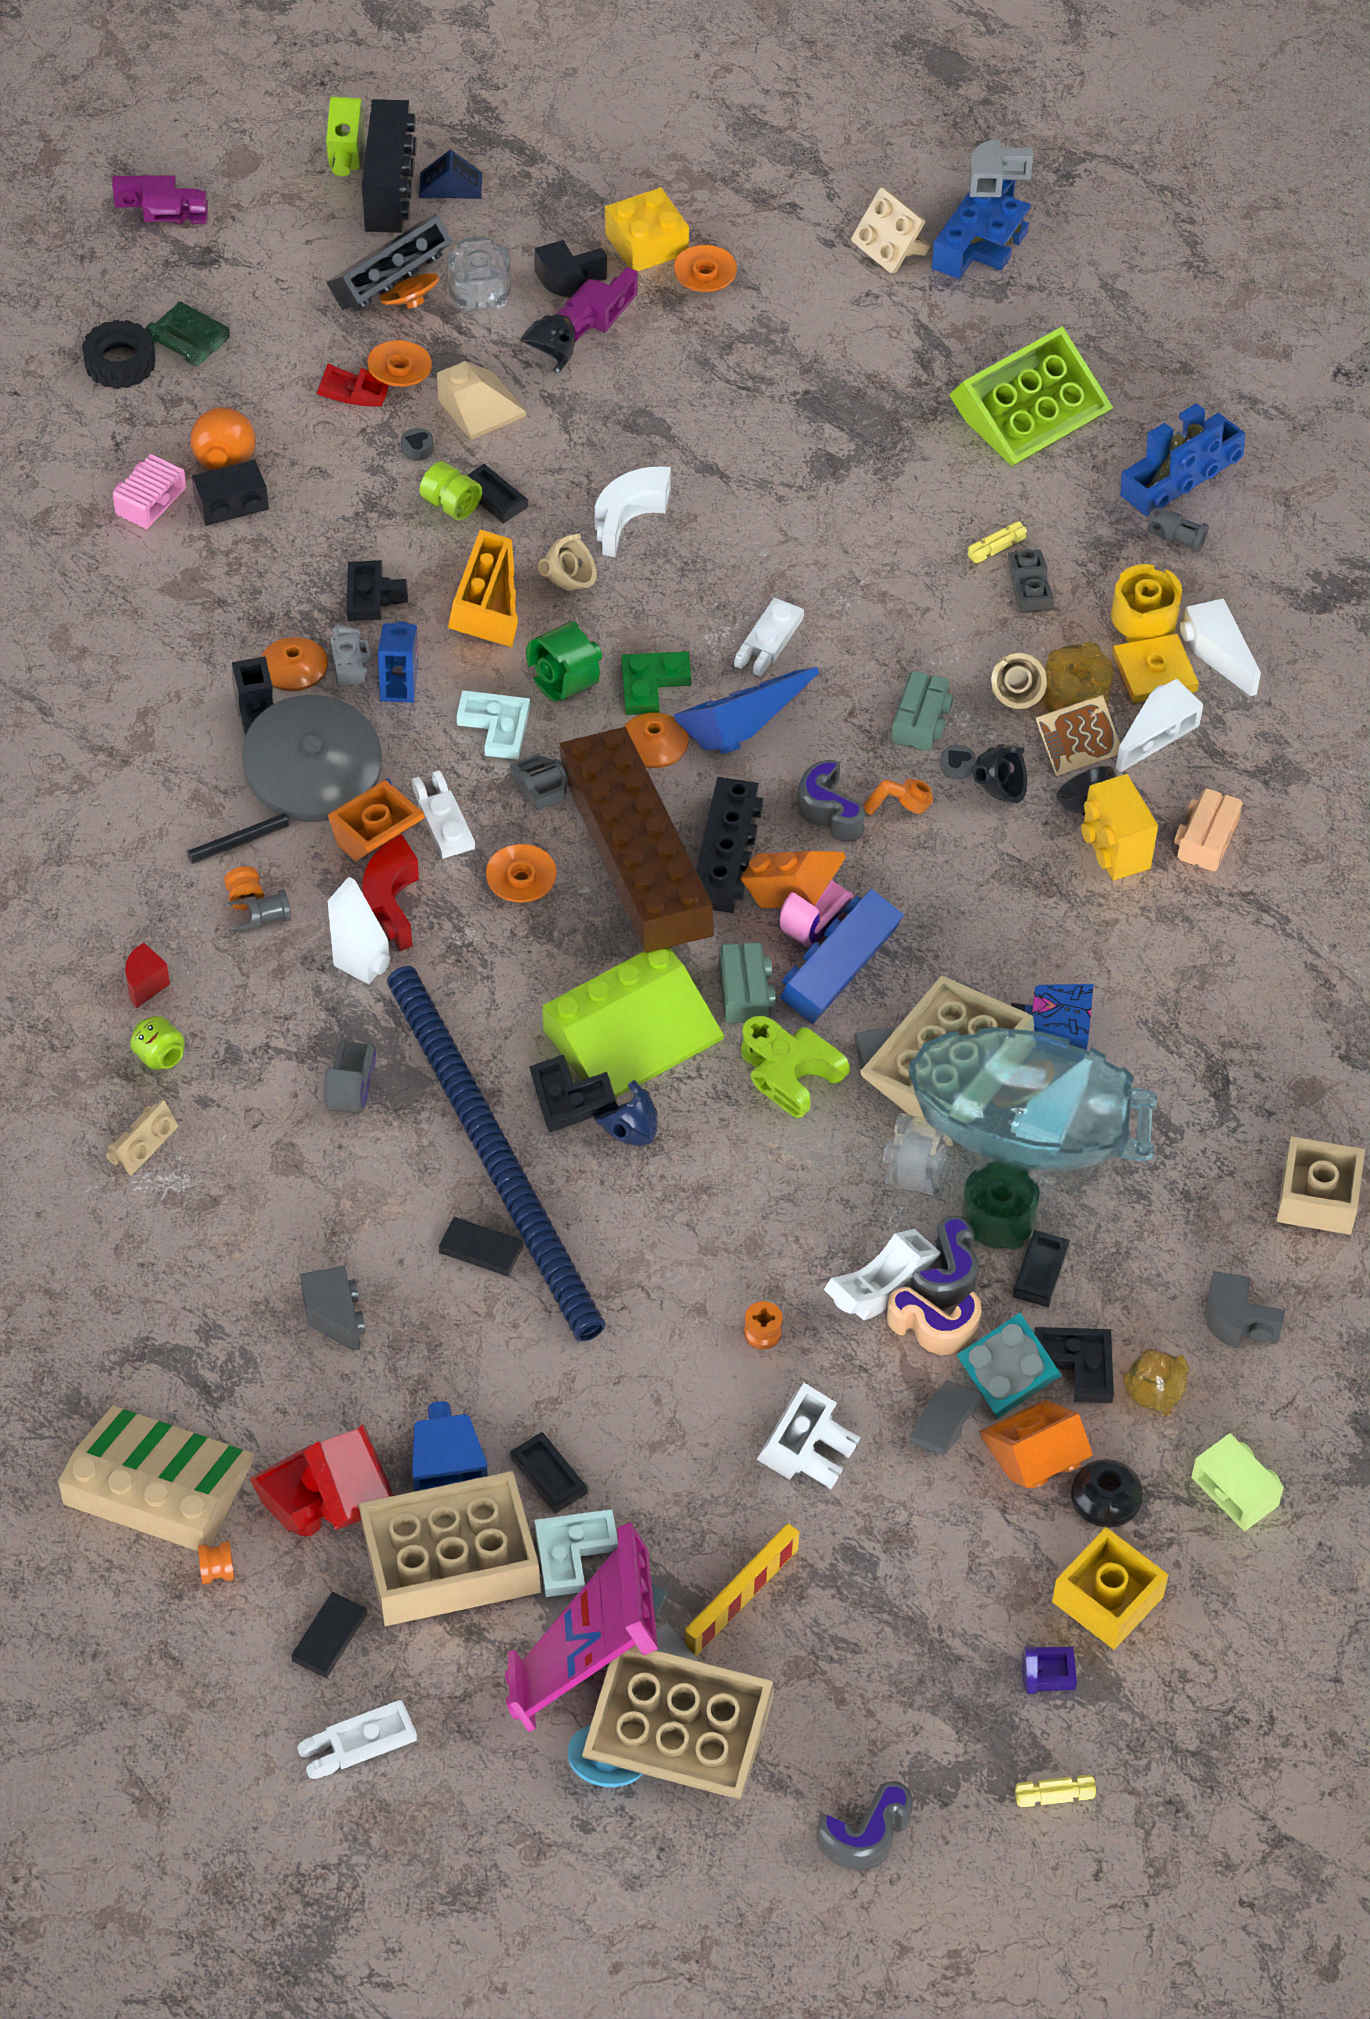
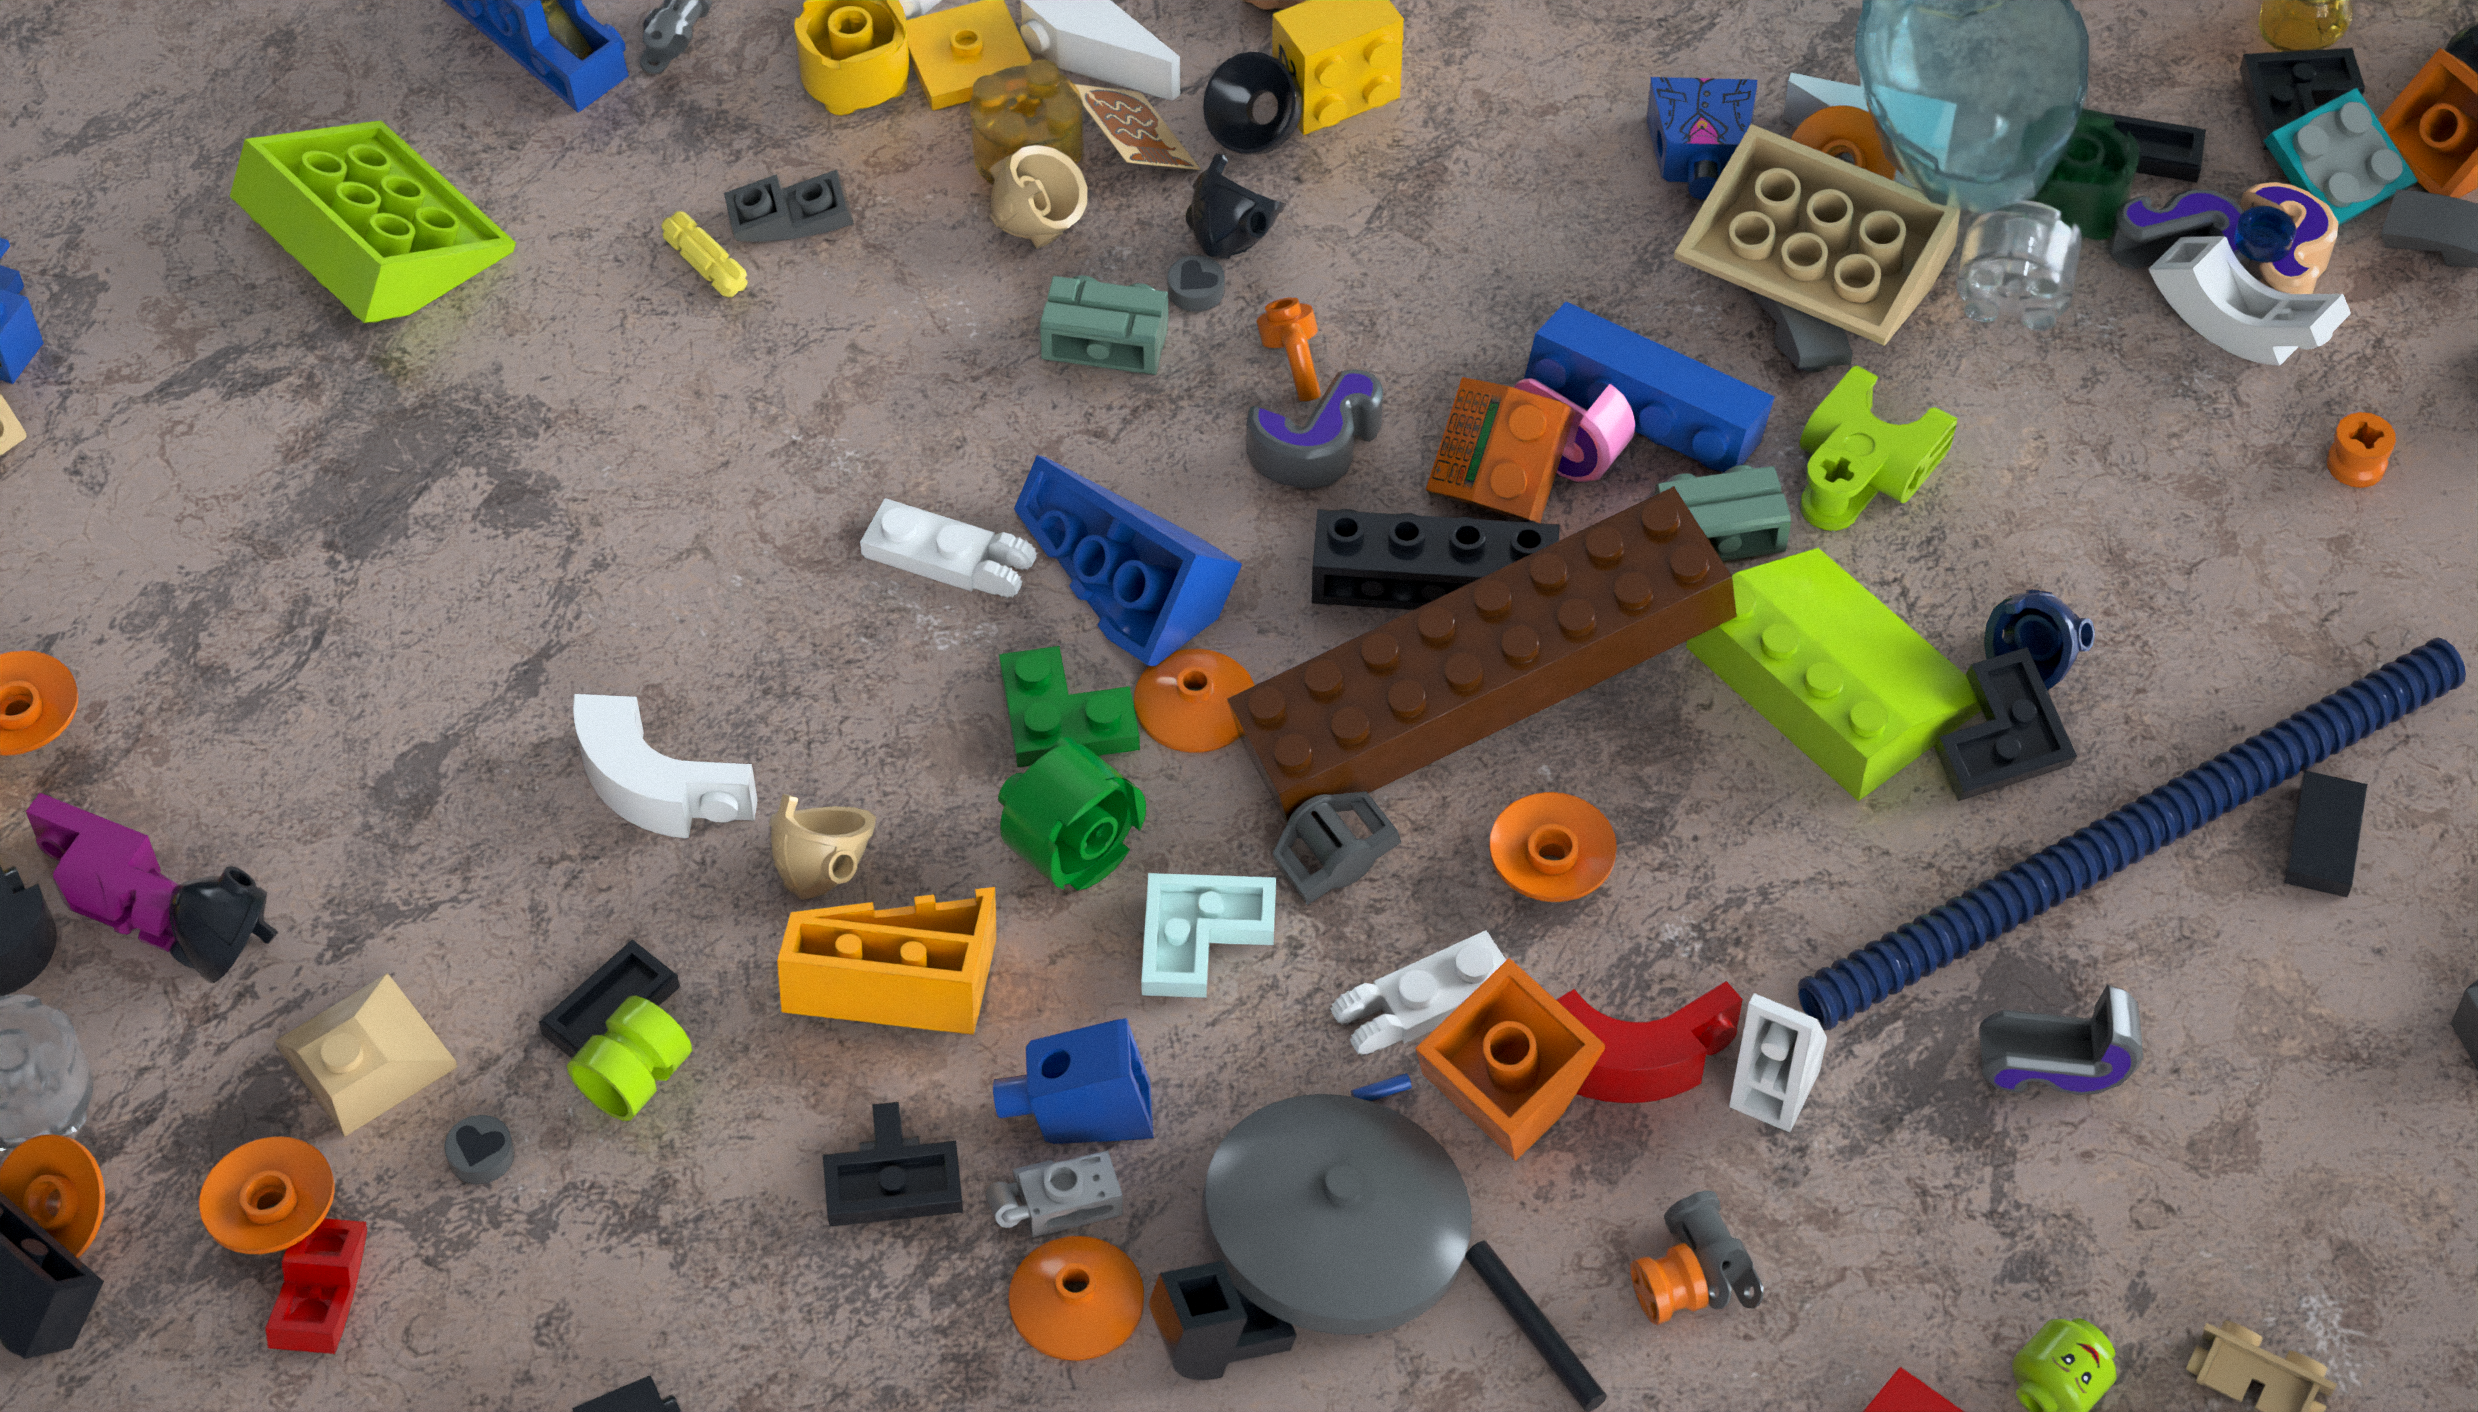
camera: 95 degrees left, 0 degrees up
(927, 1286) = (2264, 234): none -> clear blue tile

